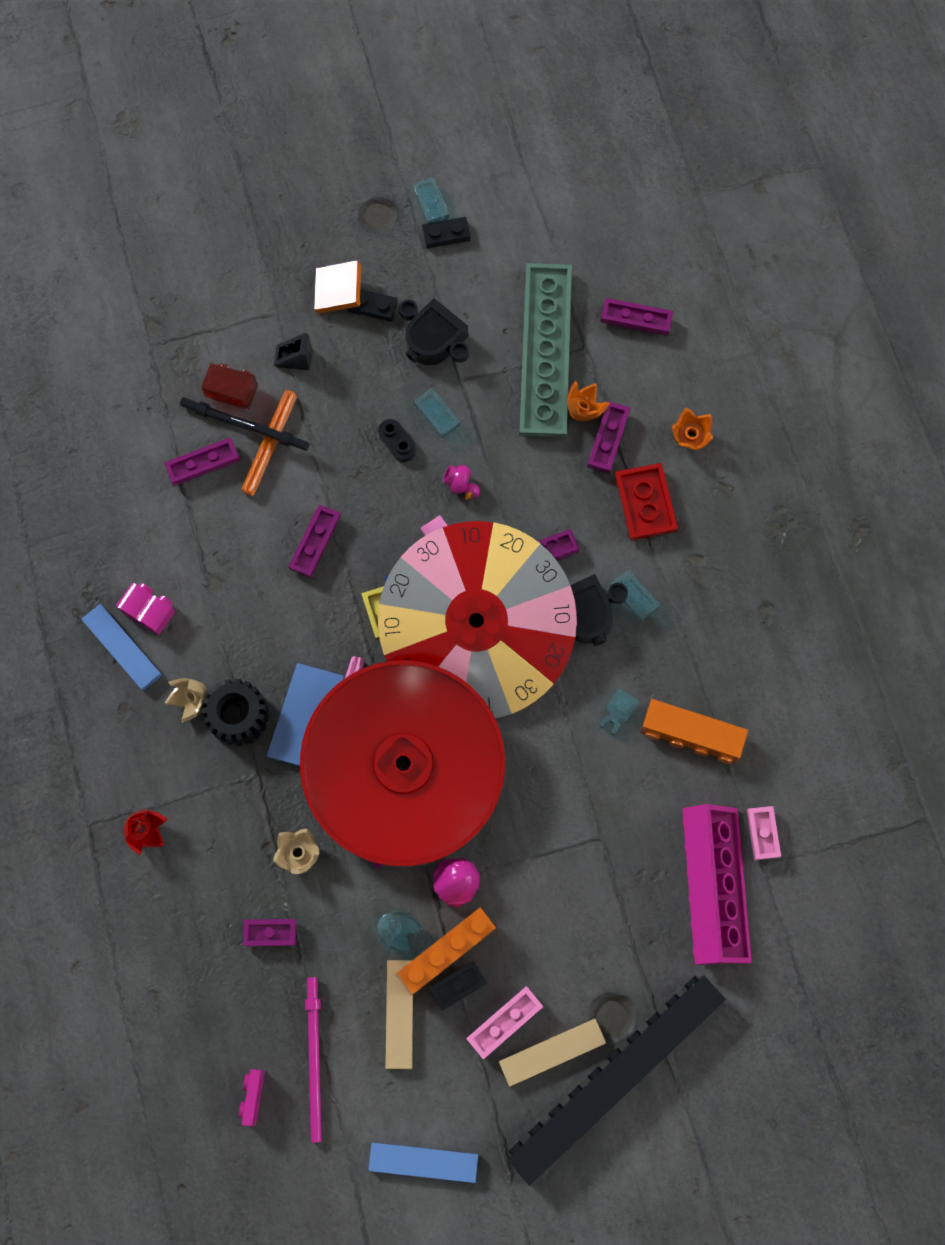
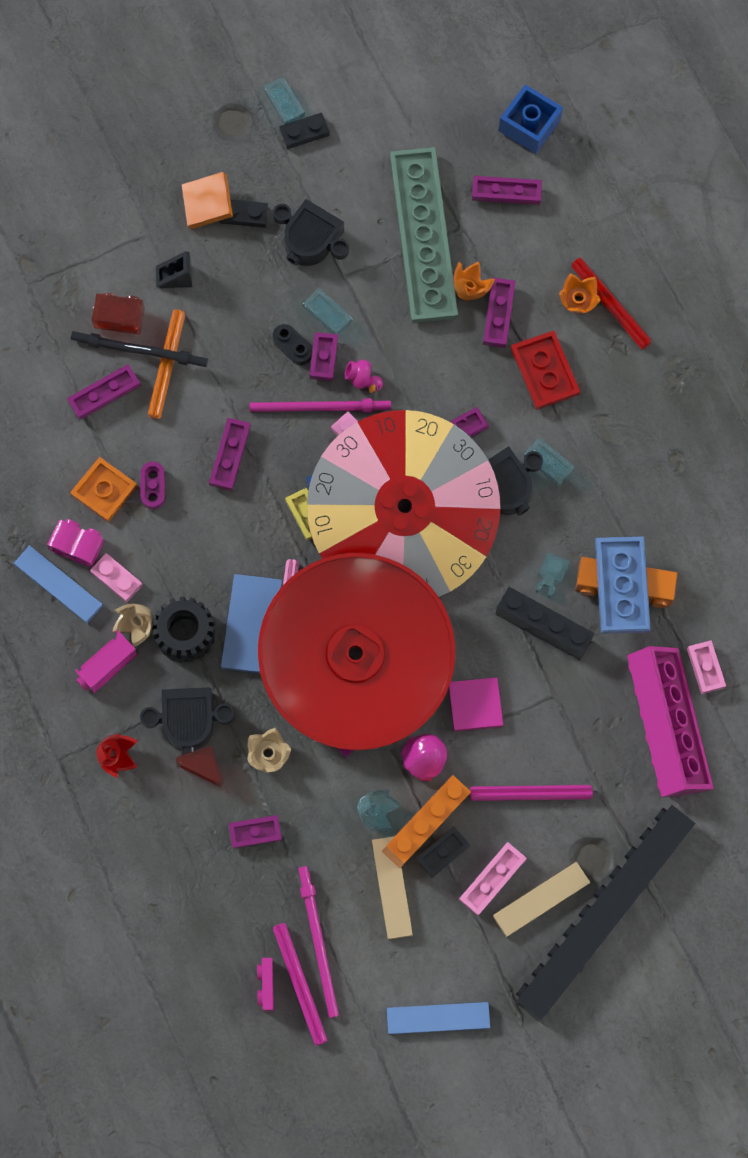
camera: 15 degrees left, 0 degrees up
(152, 735) = (105, 663): none -> dark pink window
(180, 649) = (116, 577): none -> bright pink plate
(184, 558) = (103, 489): none -> orange tile
(223, 803) = (187, 717): none -> black piece
(230, 853) = (202, 764): none -> clear red slope
(231, 562) = (152, 487): none -> magenta plate
(287, 1102) = (300, 984): none -> dark pink axle
(425, 457) = (323, 356): none -> magenta plate
(459, 511) = (366, 405): none -> dark pink bar
(518, 834) = (475, 704): none -> dark pink tile
(560, 937) = (552, 792): none -> dark pink axle
(602, 761) = (544, 623): none -> black brick
(671, 249) = (530, 119): none -> blue brick
(689, 735) = (622, 585): none -> medium blue tile
(726, 446) = (613, 305): none -> red axle

